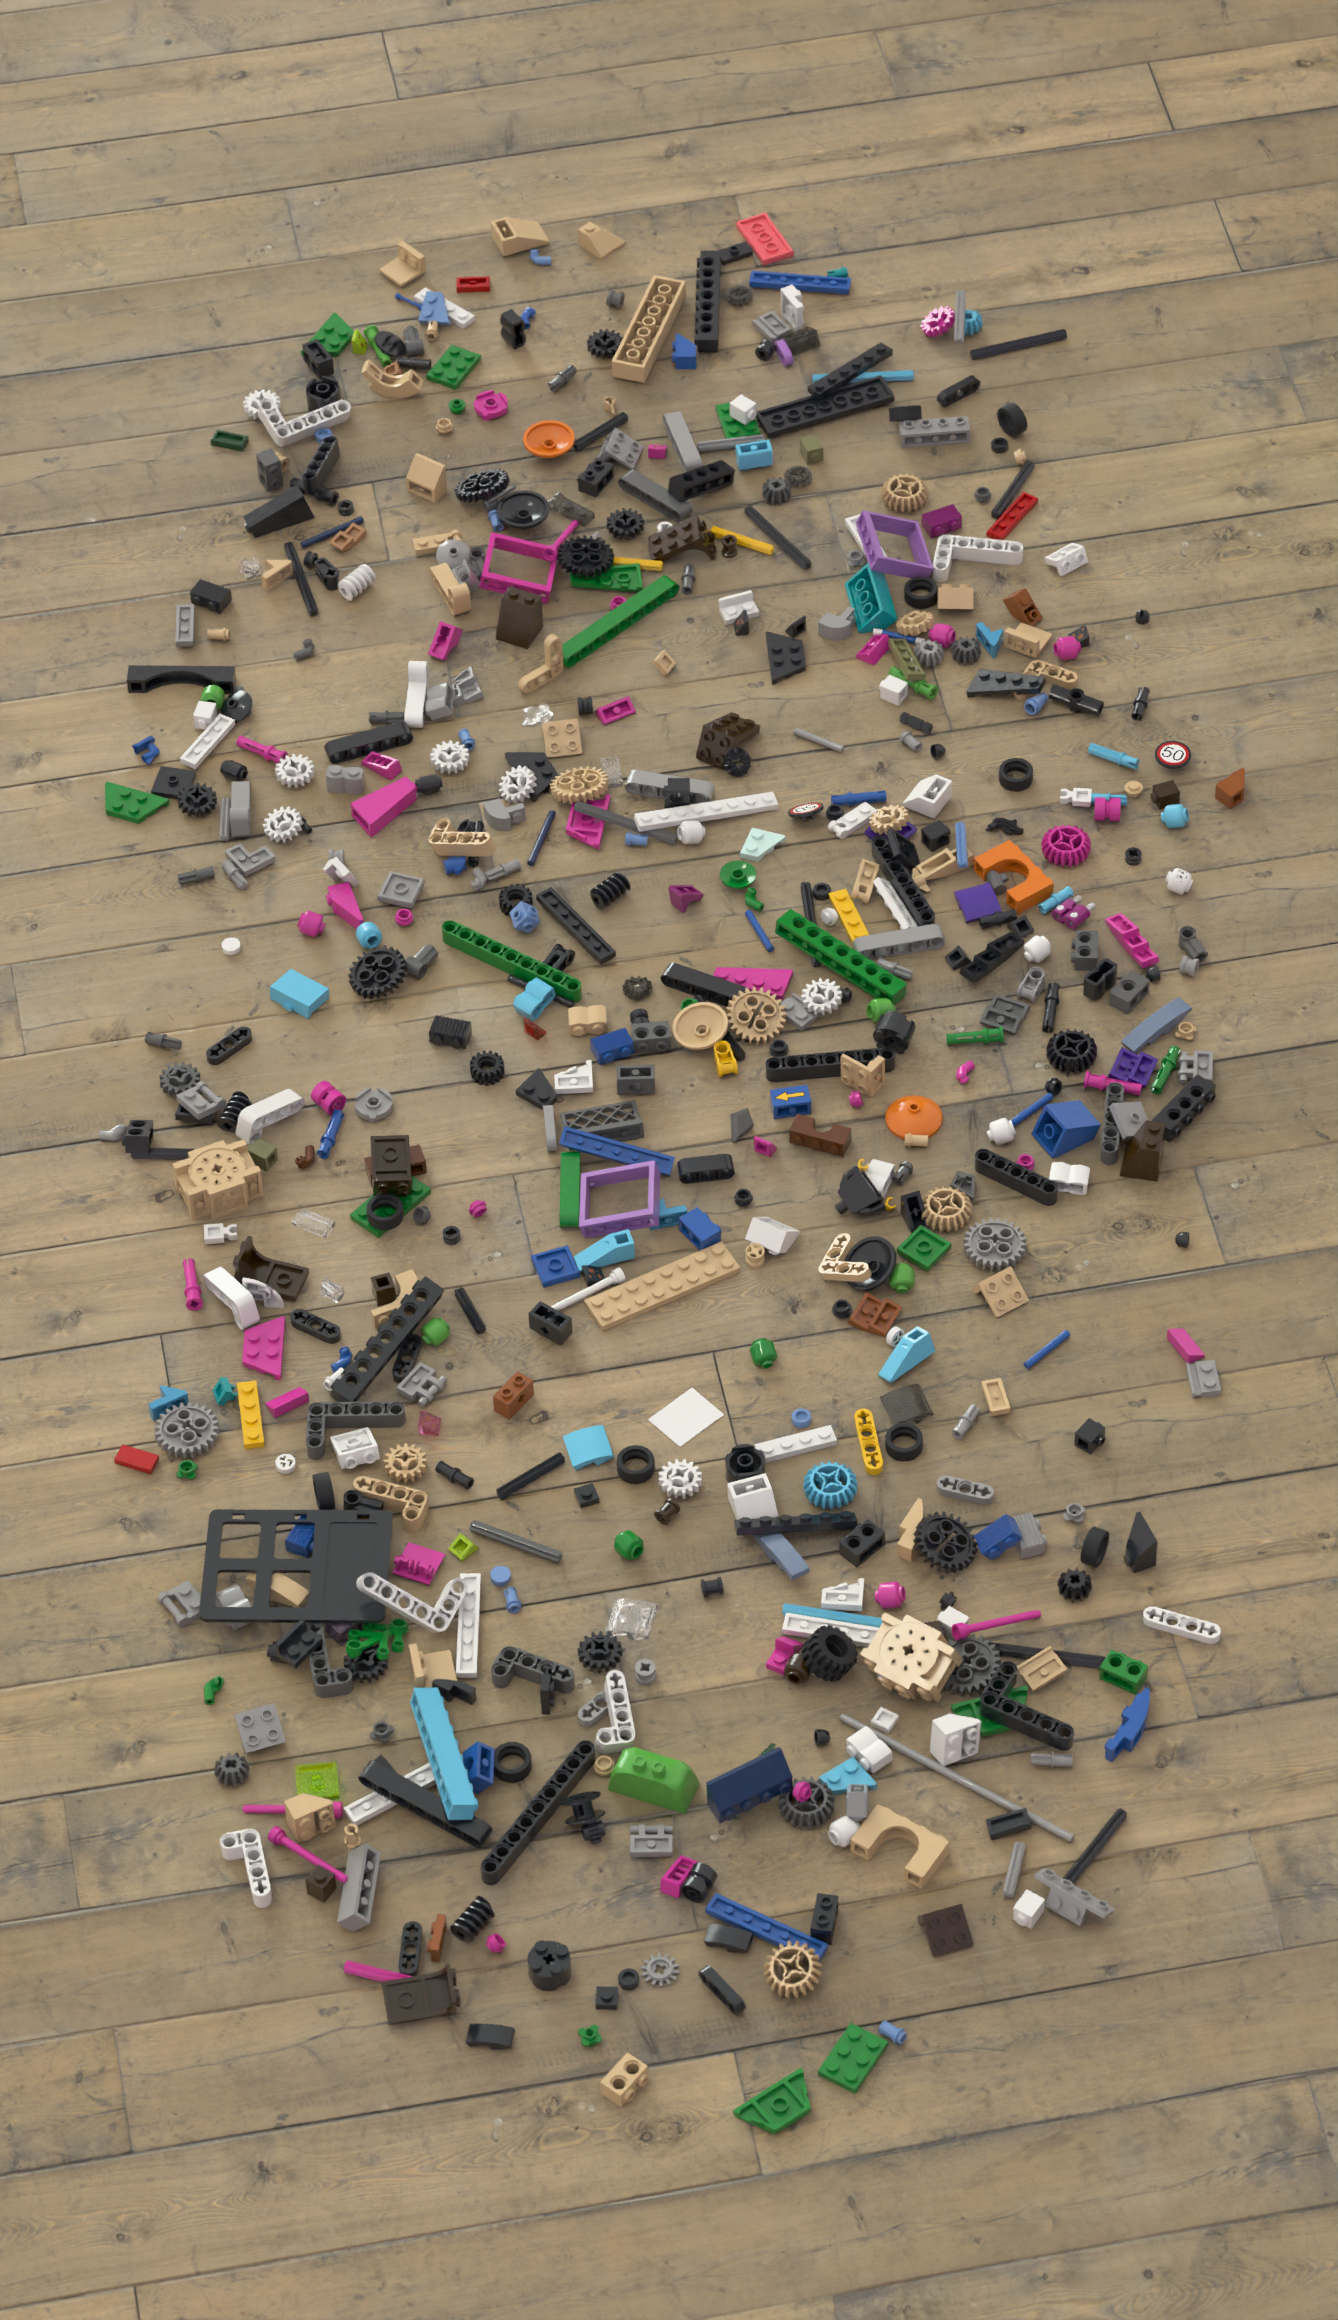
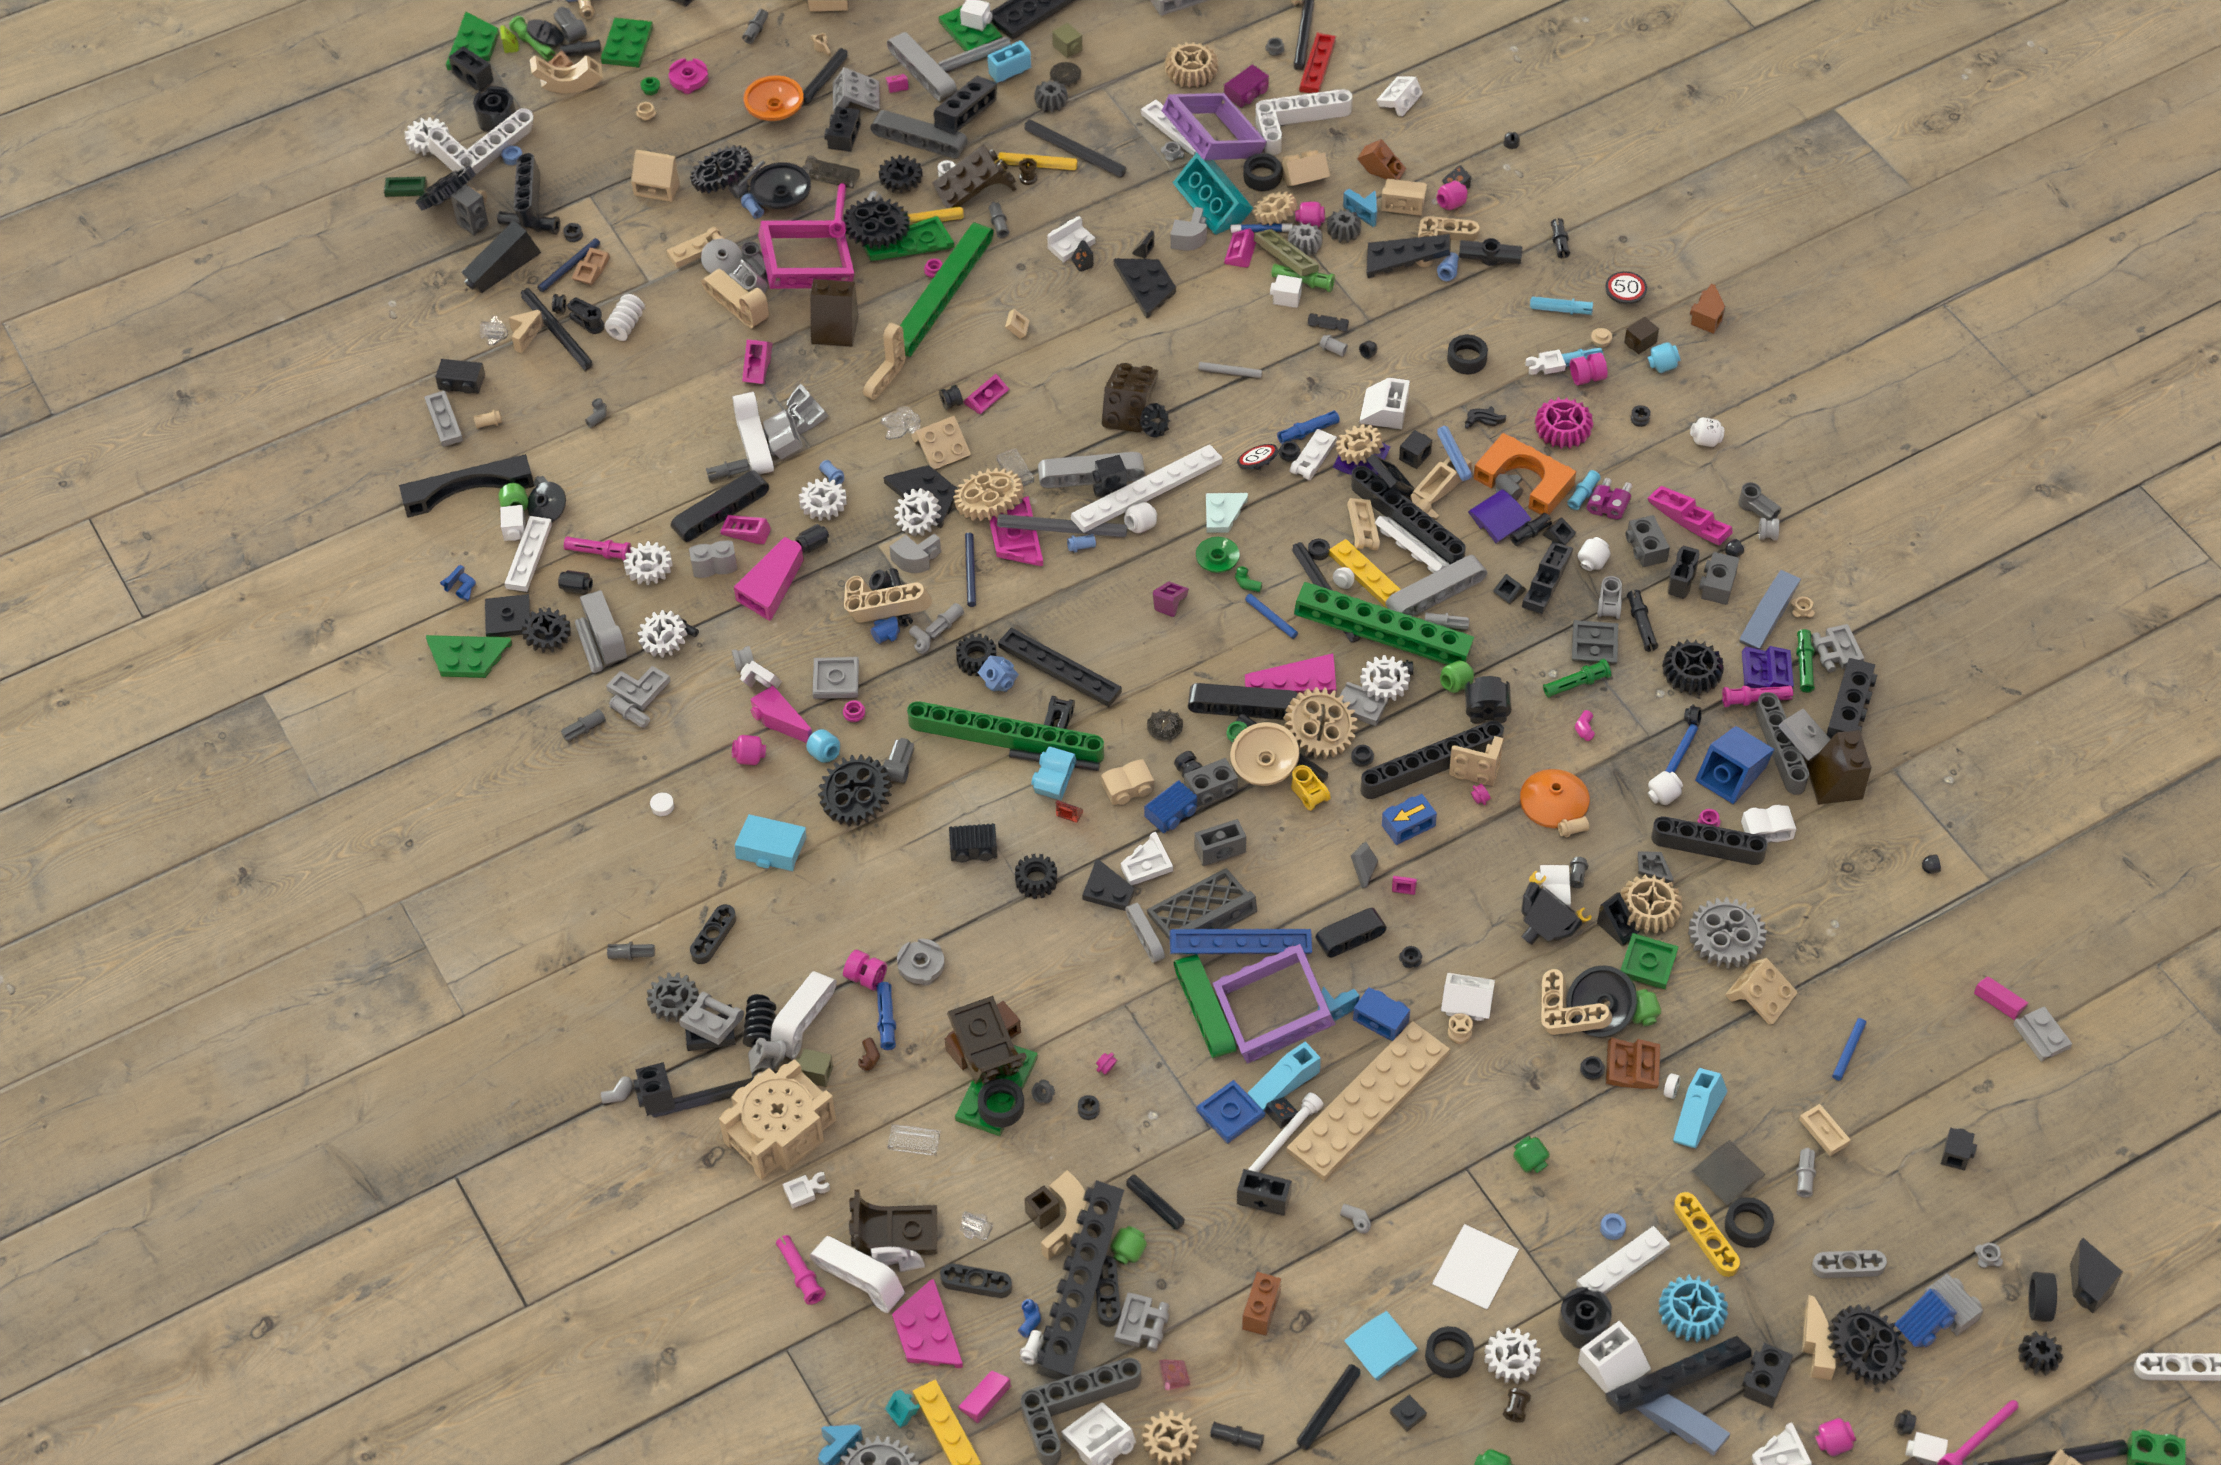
camera: 20 degrees left, 5 degrees up
(229, 1133) = (766, 1055): none -> light grey piece
(256, 446) = (445, 187): none -> black gear
(609, 890) = (1080, 613): black piece -> none
(615, 1360) = (1358, 1216): none -> light grey arm
(833, 1141) = (1445, 856): reddish brown arch -> none

